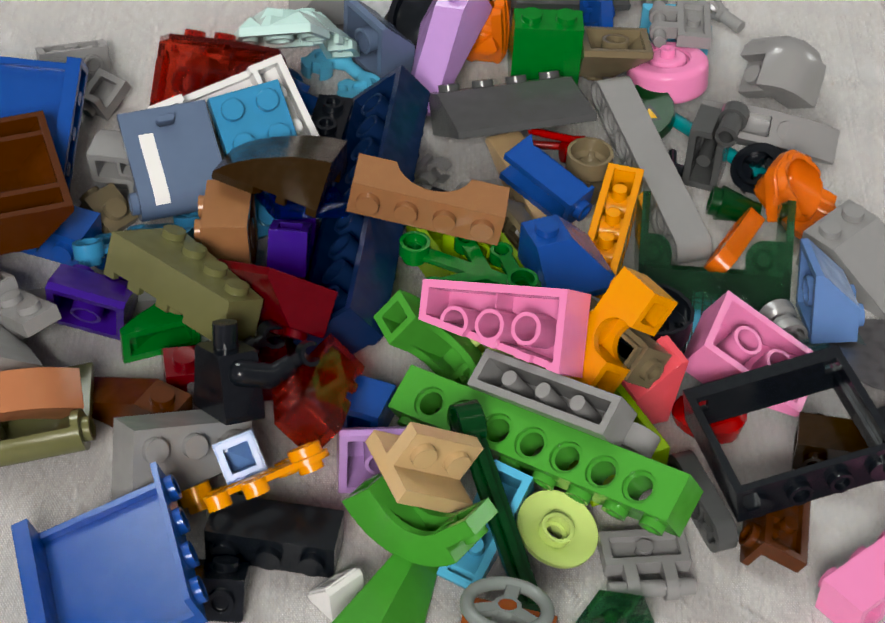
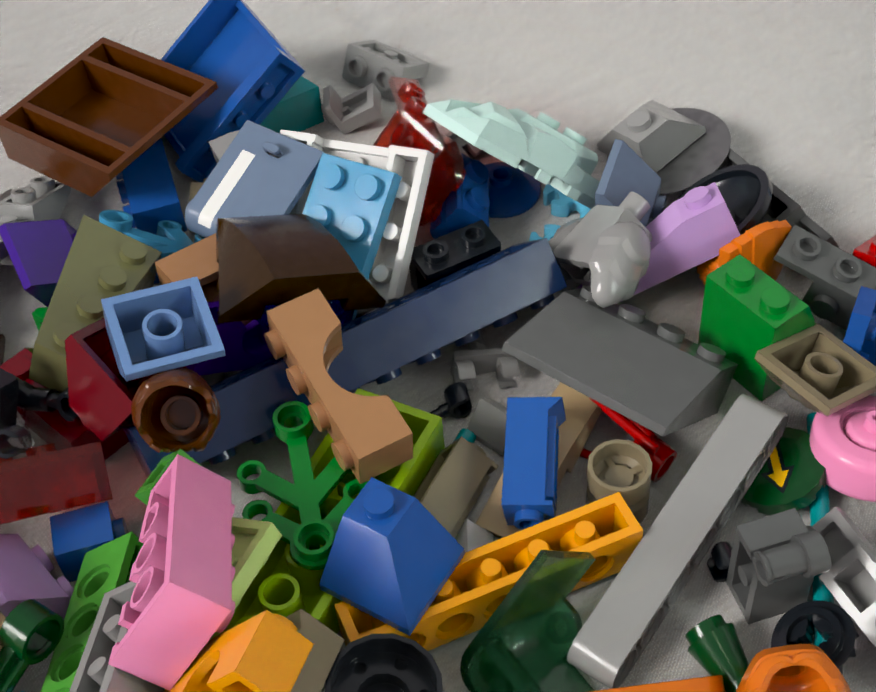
camera: 60 degrees right, 5 degrees up
(315, 233) = (161, 328): none -> medium blue slope
(371, 268) = (176, 411): none -> reddish brown hair
(429, 53) = (605, 250): none -> light grey torso

